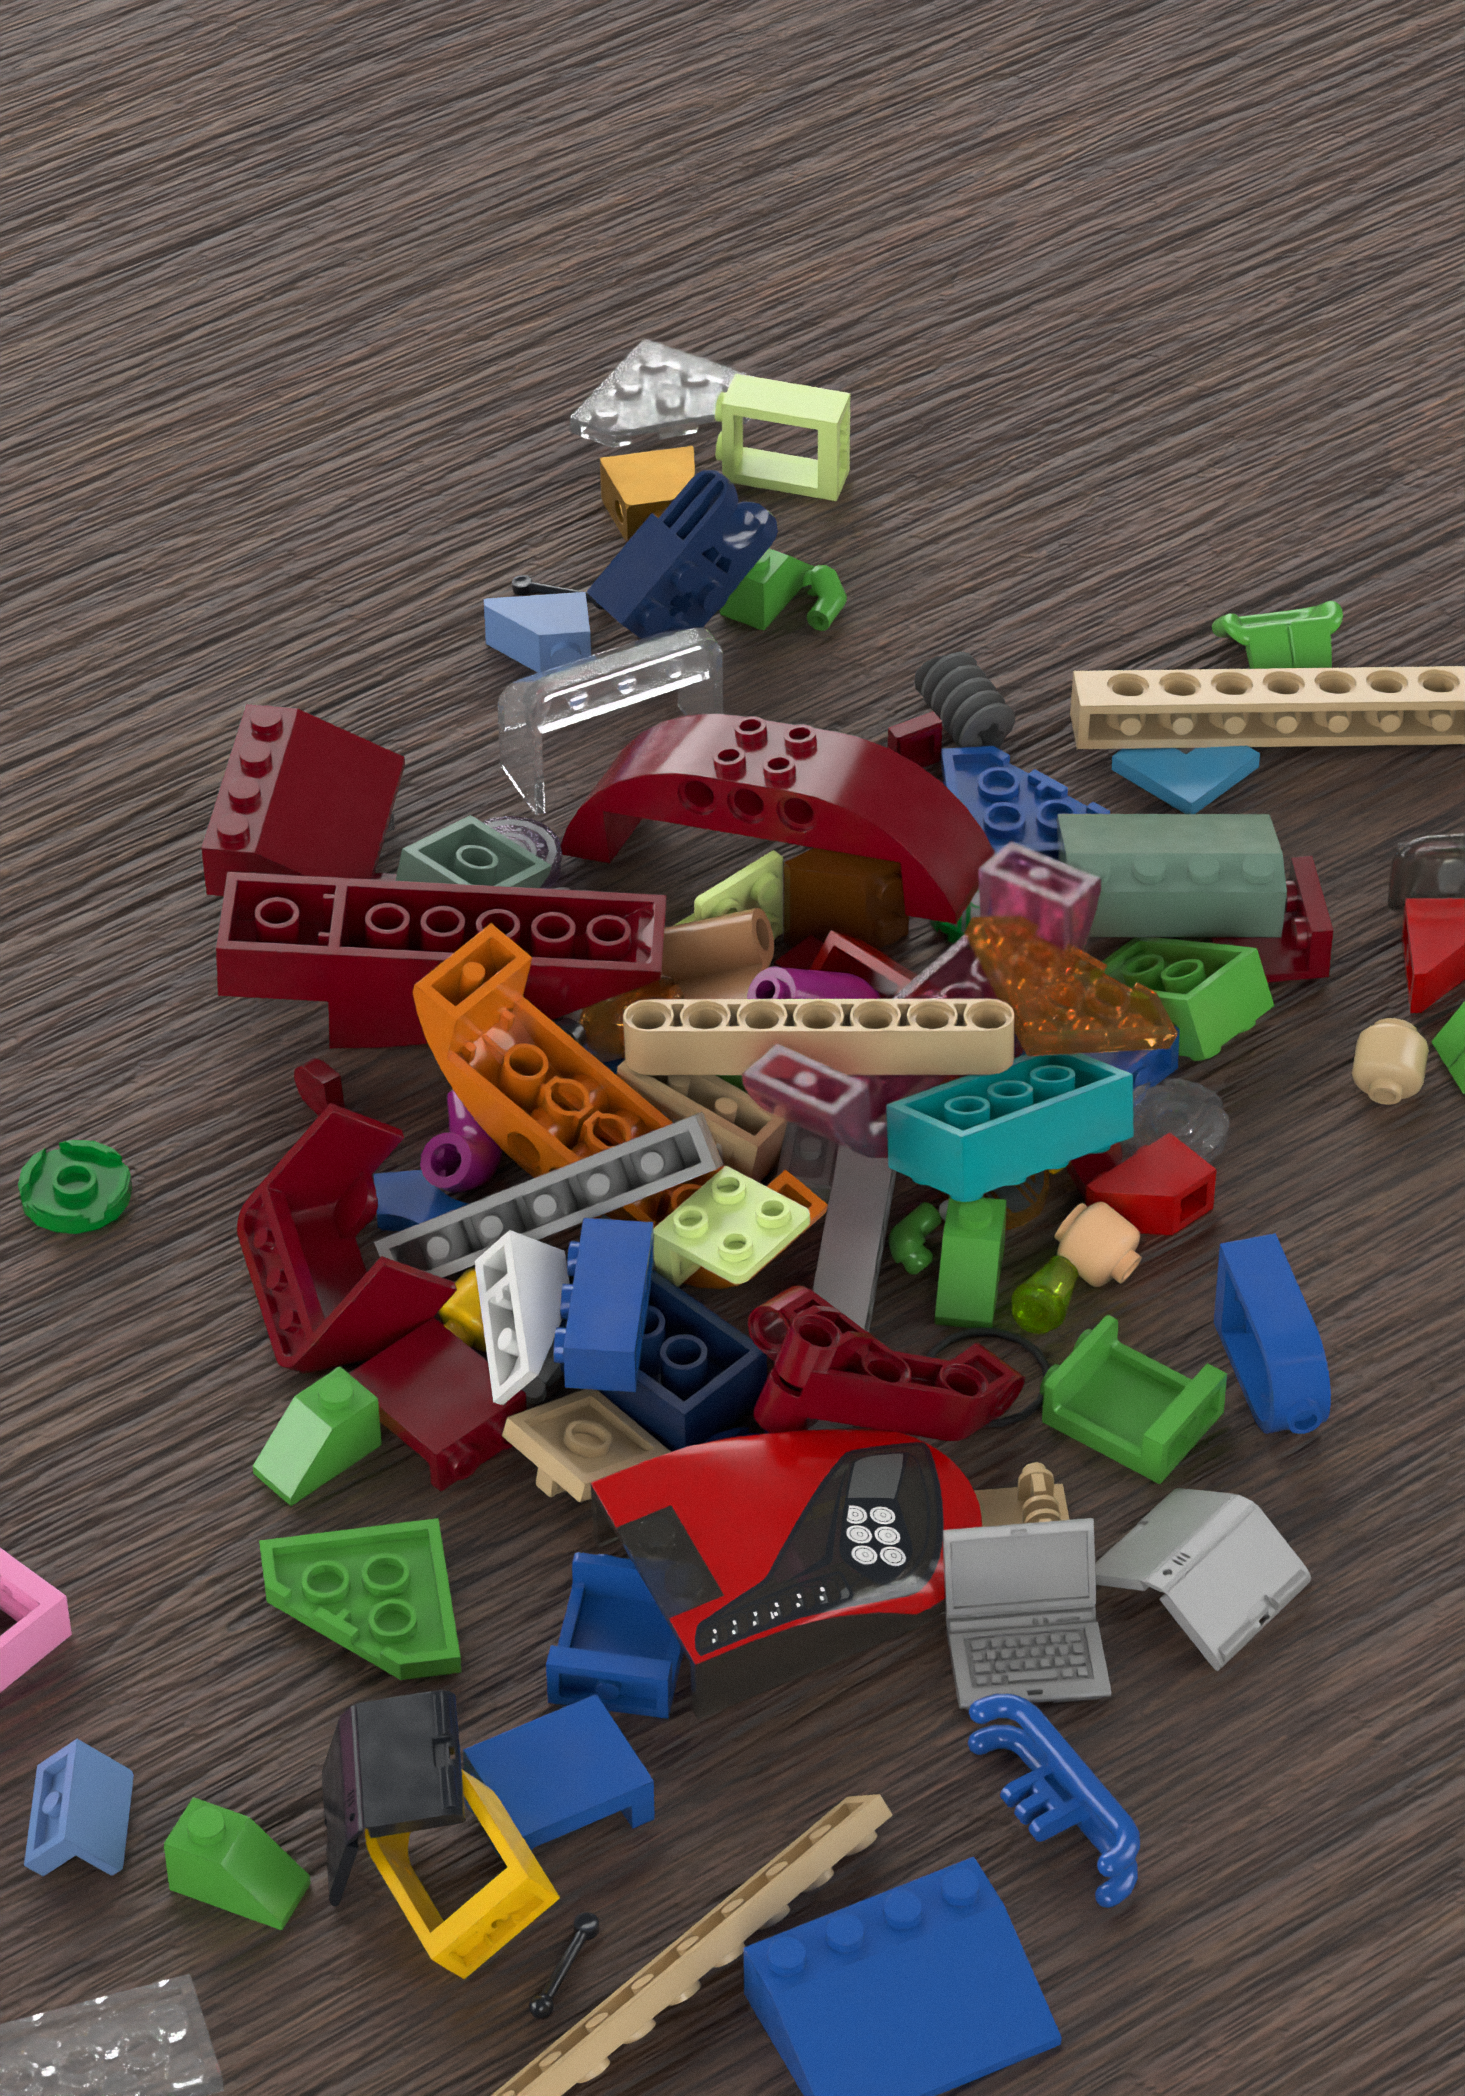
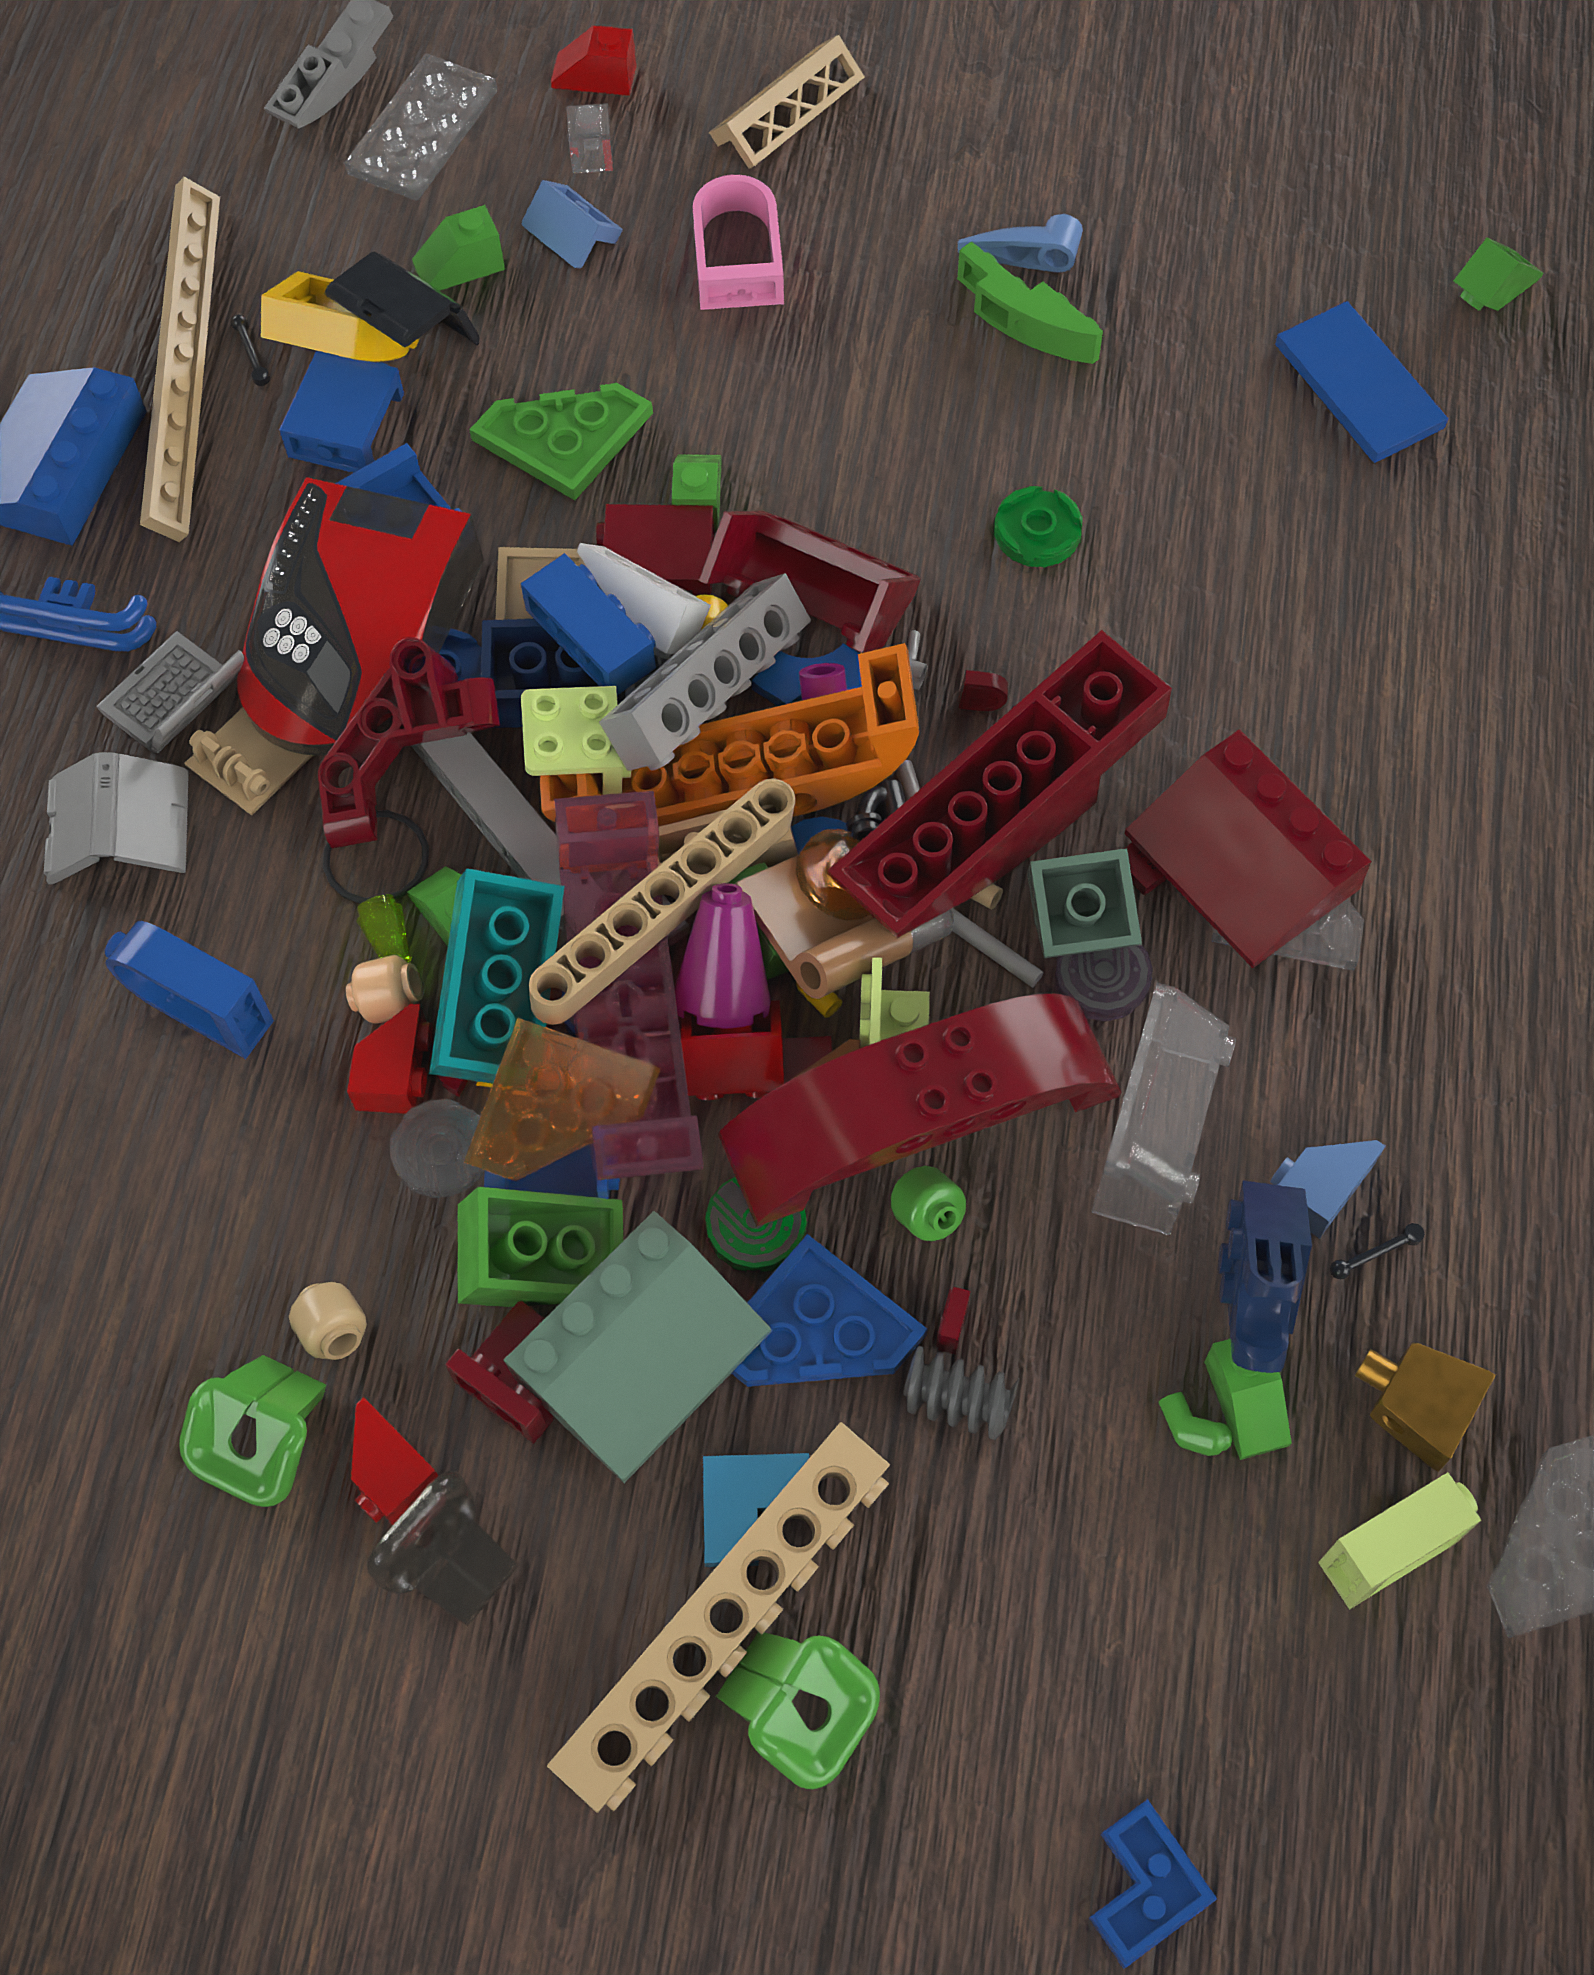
camera: 135 degrees right, 20 degrees up
(1130, 1402) = (258, 902): bright green panel -> none
(1150, 439) = (1164, 1889): none -> blue tile

